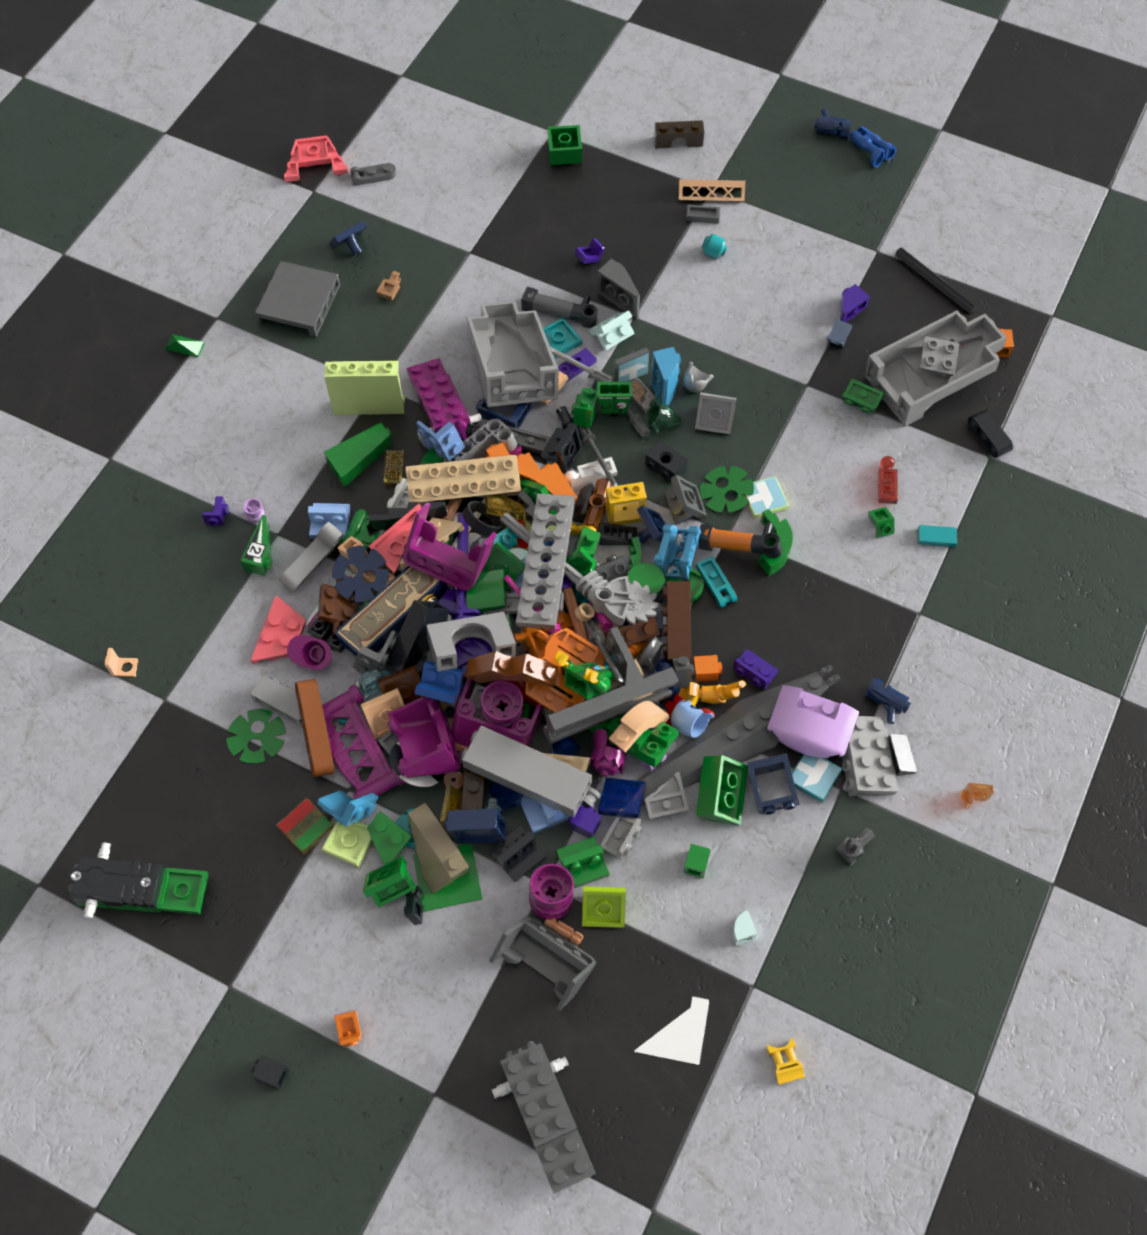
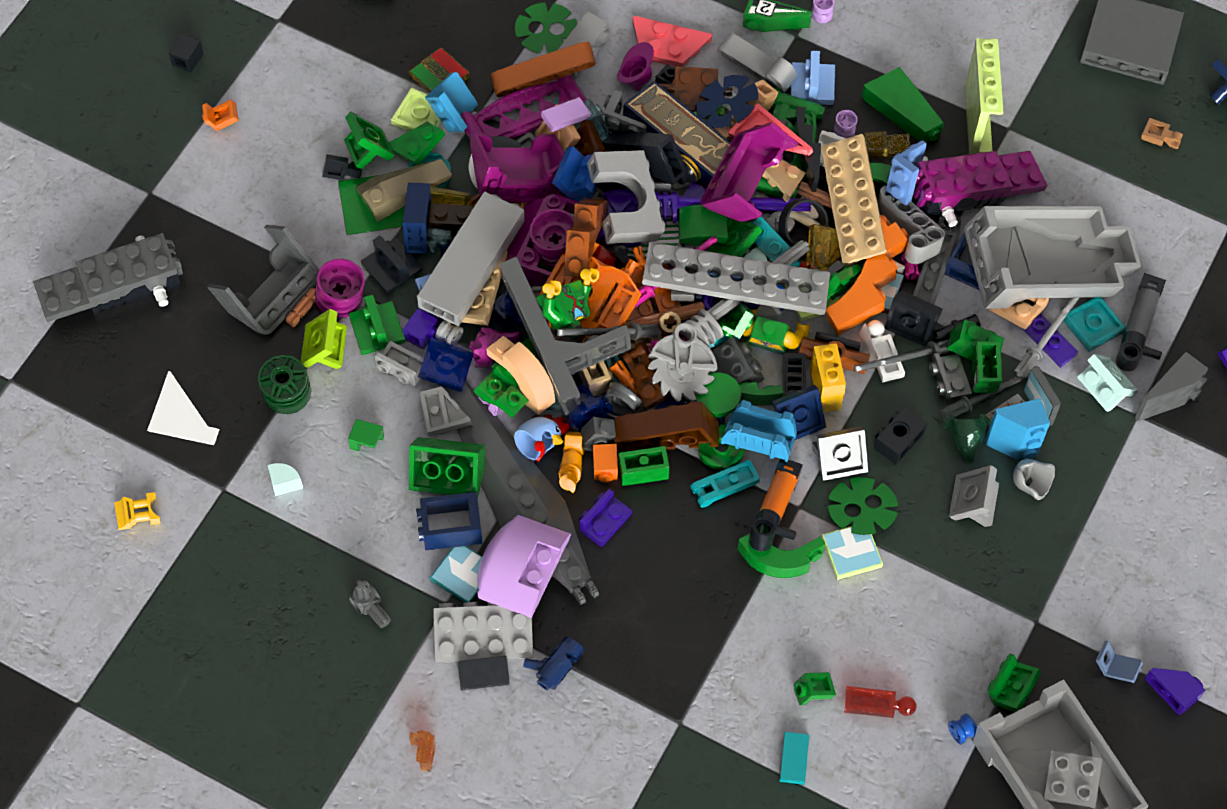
camera: 90 degrees right, 0 degrees up
(376, 495) = (845, 124): none -> lavender wheel
(376, 697) = (565, 114): none -> lavender tile
(611, 430) = (950, 377): none -> flat silver bracket
(660, 922) = (284, 384): none -> dark green wheel
(709, 636) = (643, 466): none -> green brick
(900, 428) = (962, 728): none -> blue wheel

